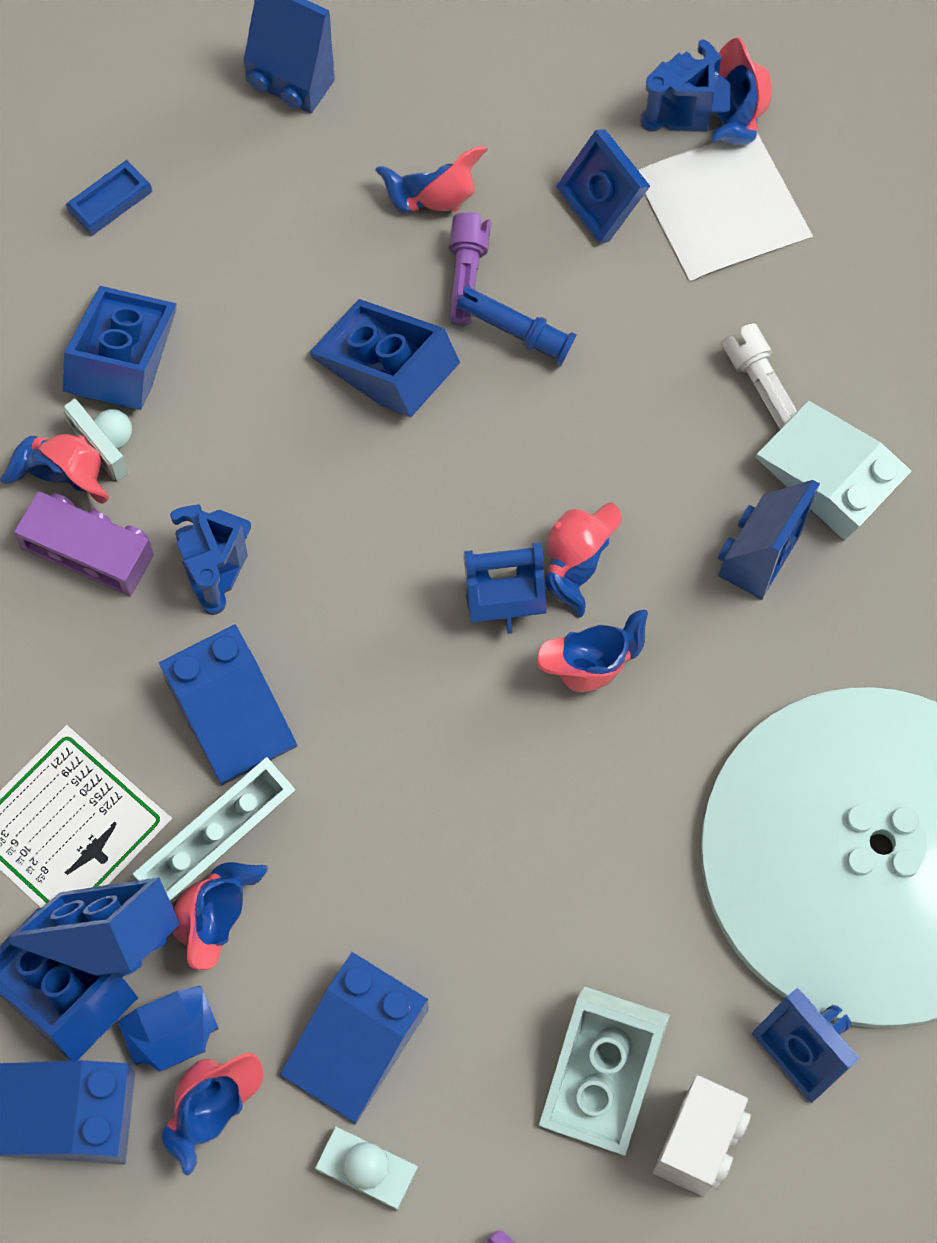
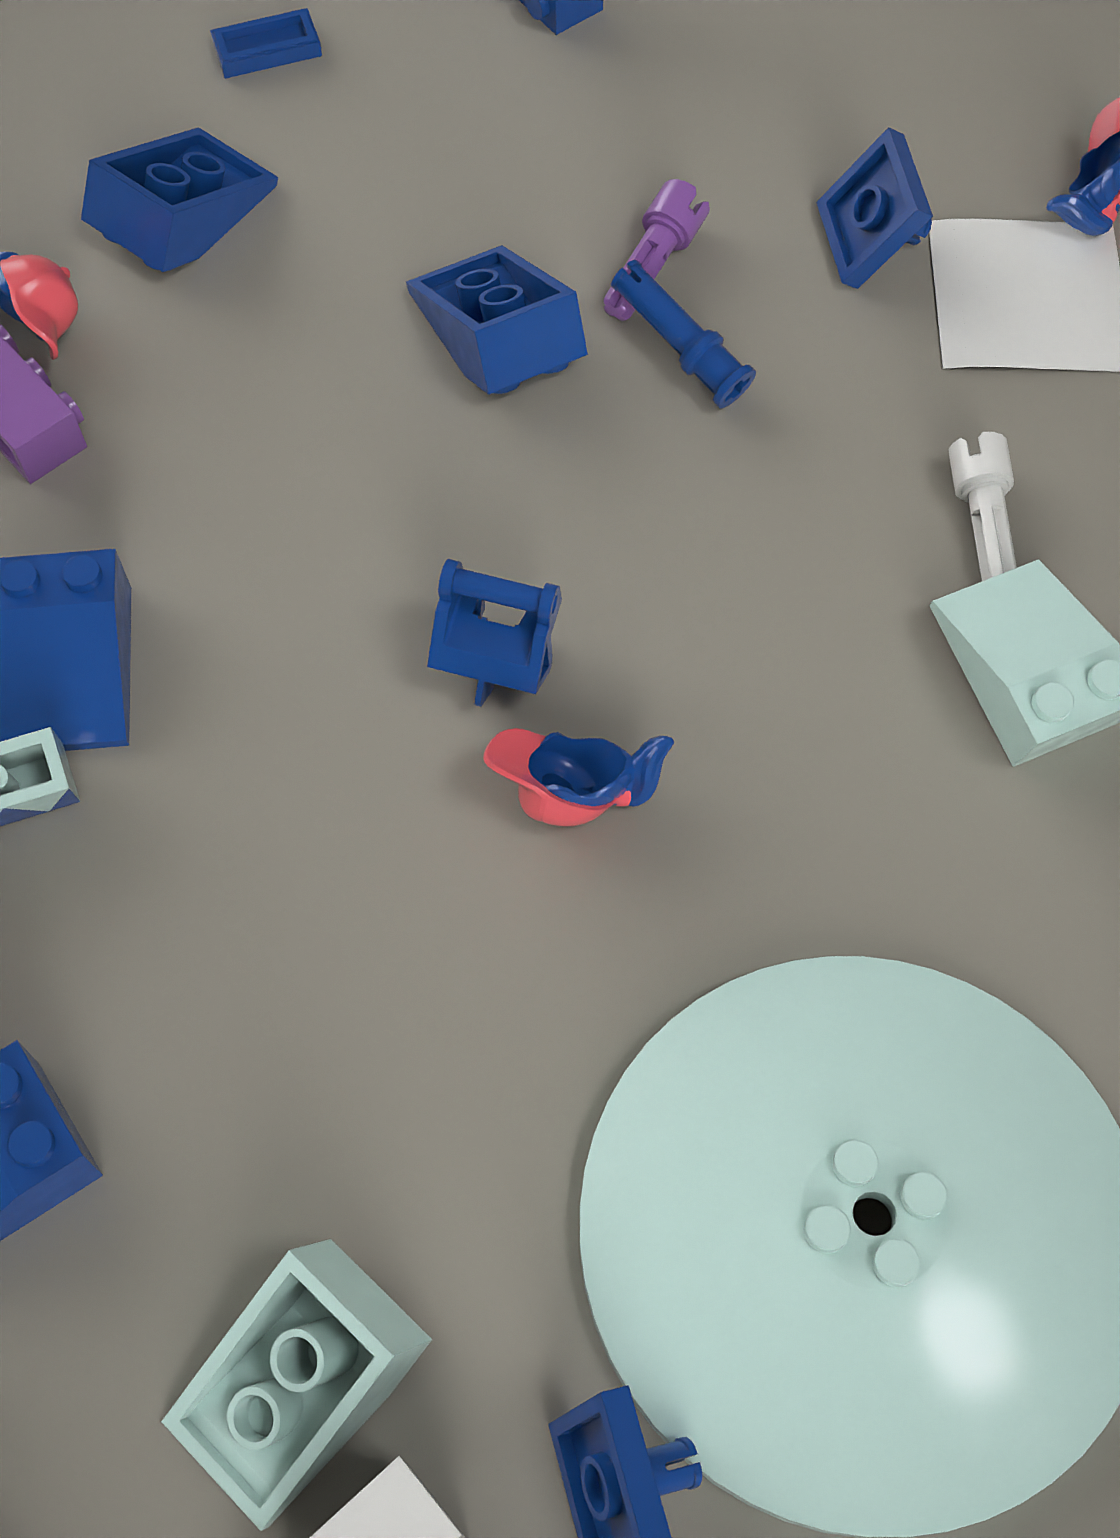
camera: 25 degrees right, 5 degrees down
(105, 434) = (98, 283): light aqua tile -> none
(211, 552) = (141, 459): blue piece -> none
(437, 191) = (662, 147): coral hair -> none
(575, 551) = (615, 630): coral hair -> none
(686, 92) = (1052, 147): blue piece -> none
(766, 537) = (898, 714): blue slope -> none

